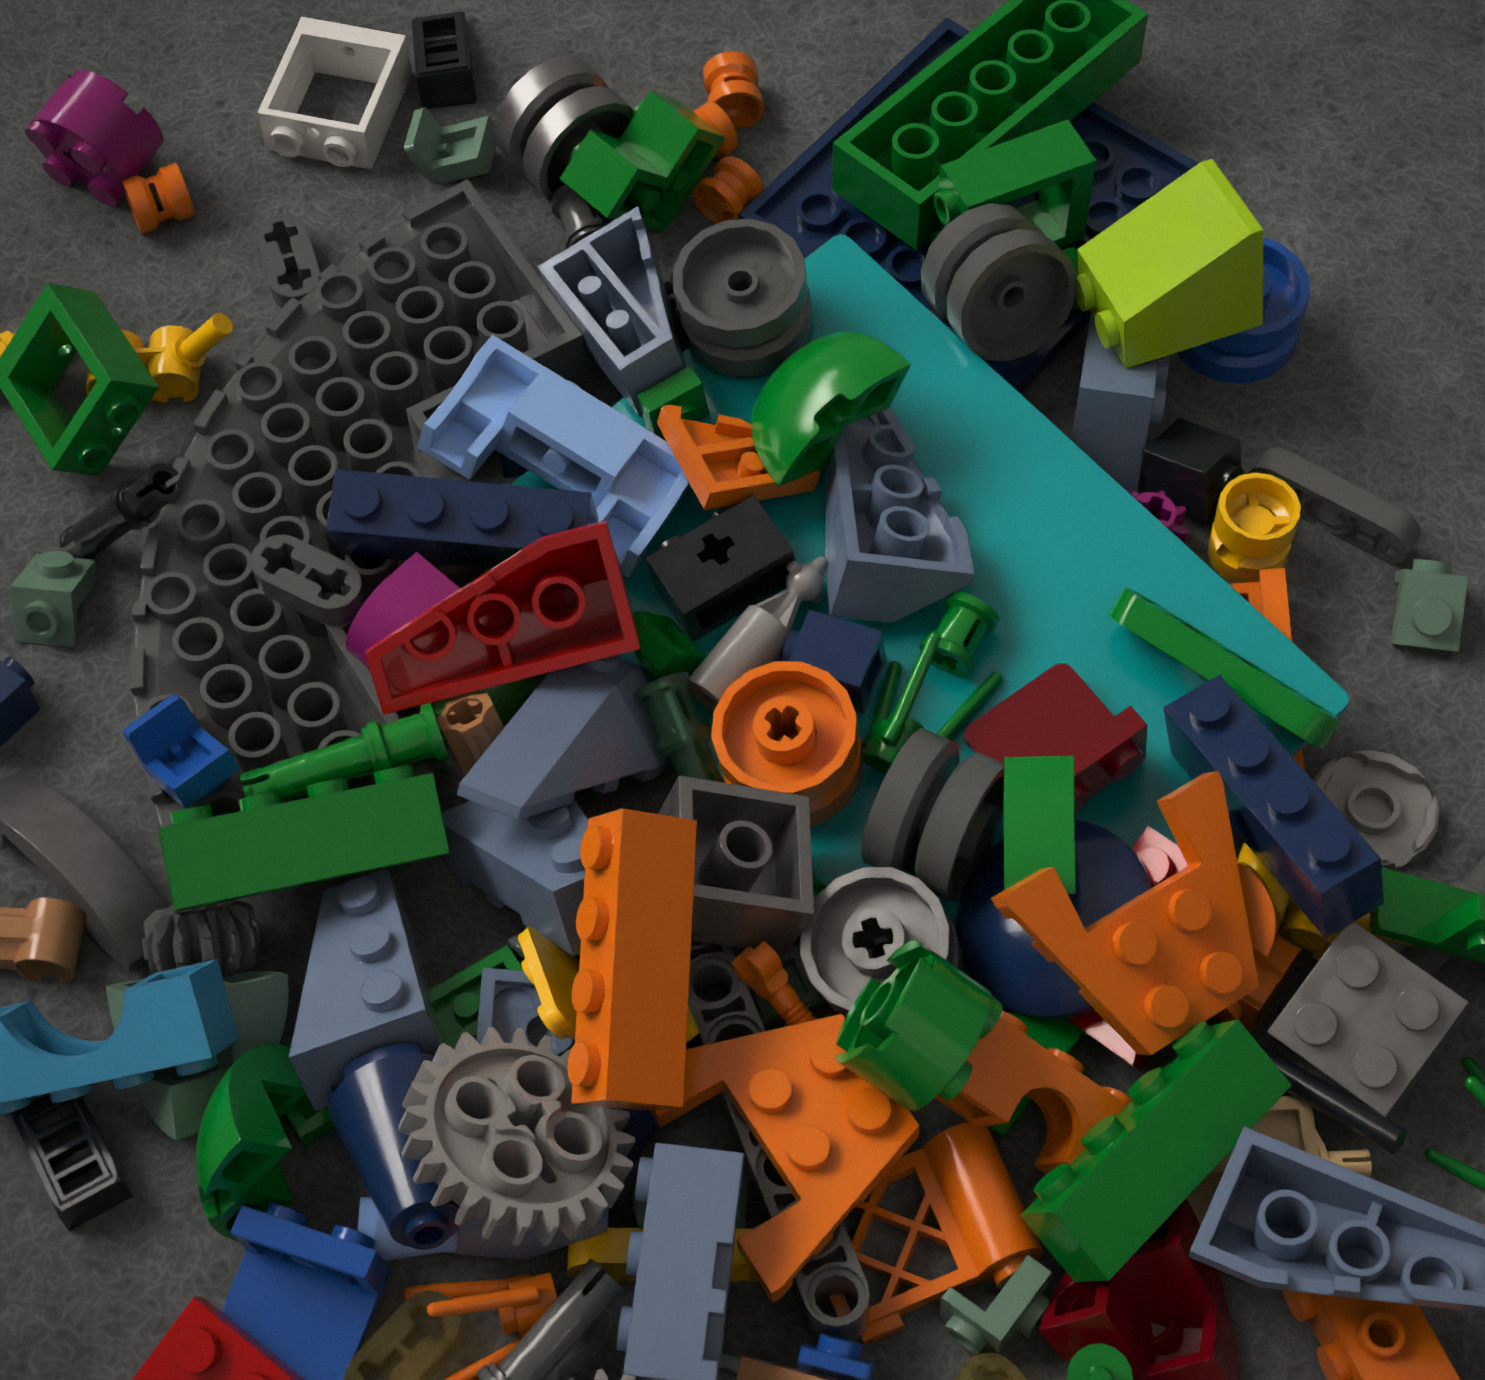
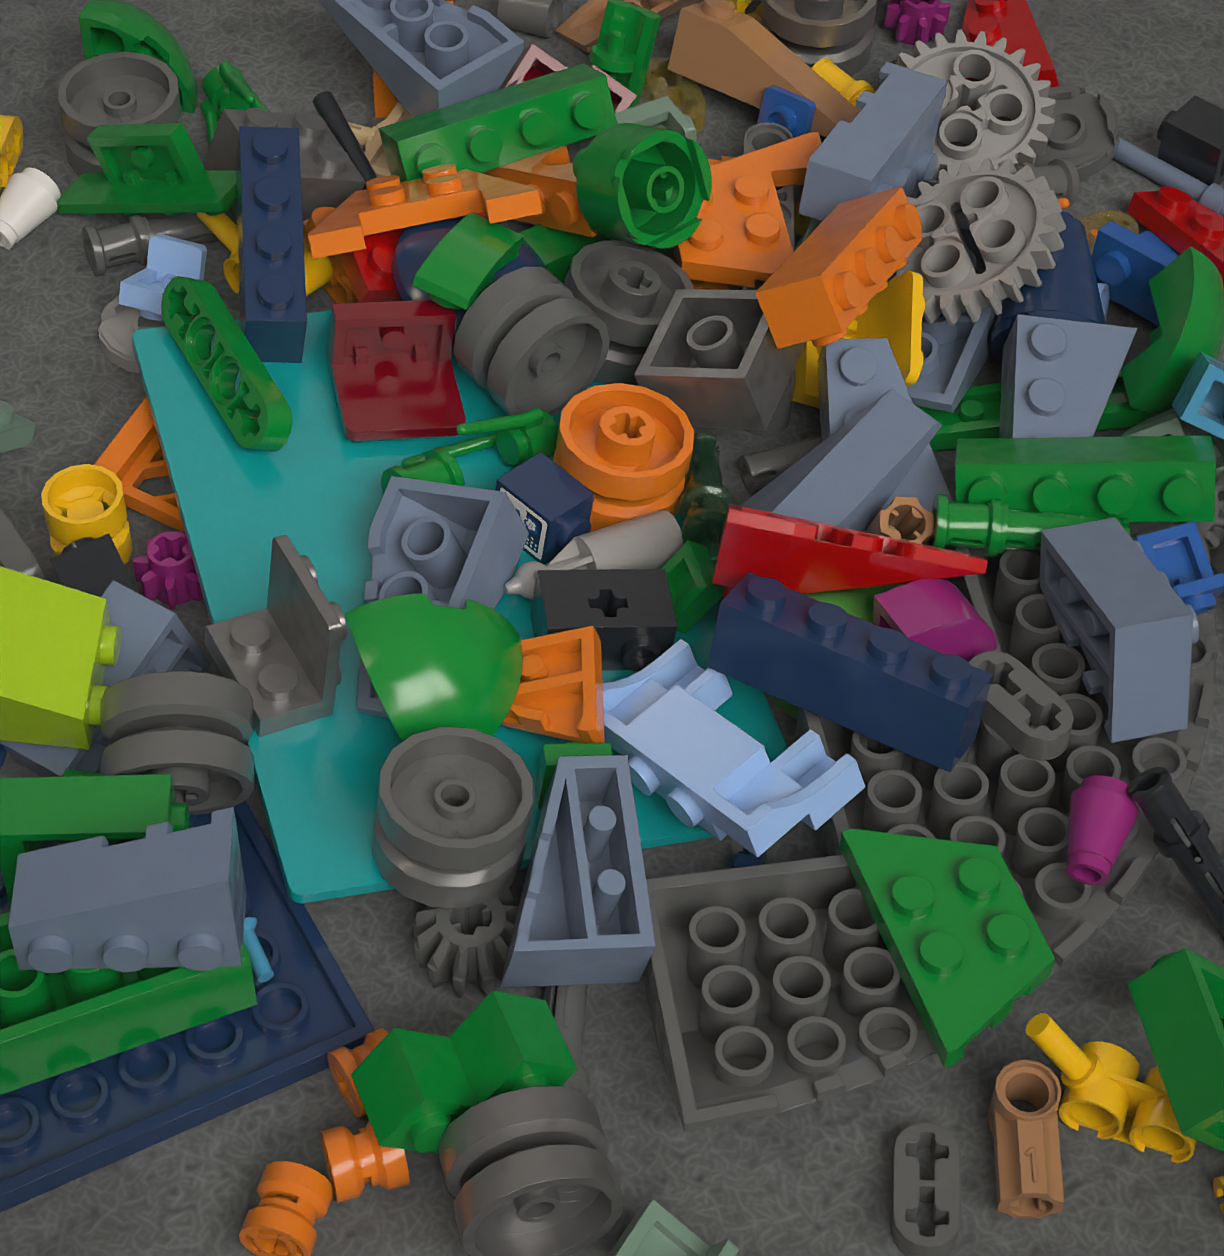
camera: 160 degrees left, 10 degrees down
(207, 479) = (1098, 827): none -> magenta cone
(215, 290) = (1027, 1142): none -> medium nougat piece
(231, 665) = (1125, 622): none -> sand blue wedge
(310, 368) = (951, 930): none -> green wing
(874, 234) = (259, 961): none -> dark azure piece
(923, 101) = (133, 902): none -> sand blue wedge
(968, 387) = (288, 649): none -> flat silver bracket
(1384, 809) = (165, 260): none -> light blue bracket

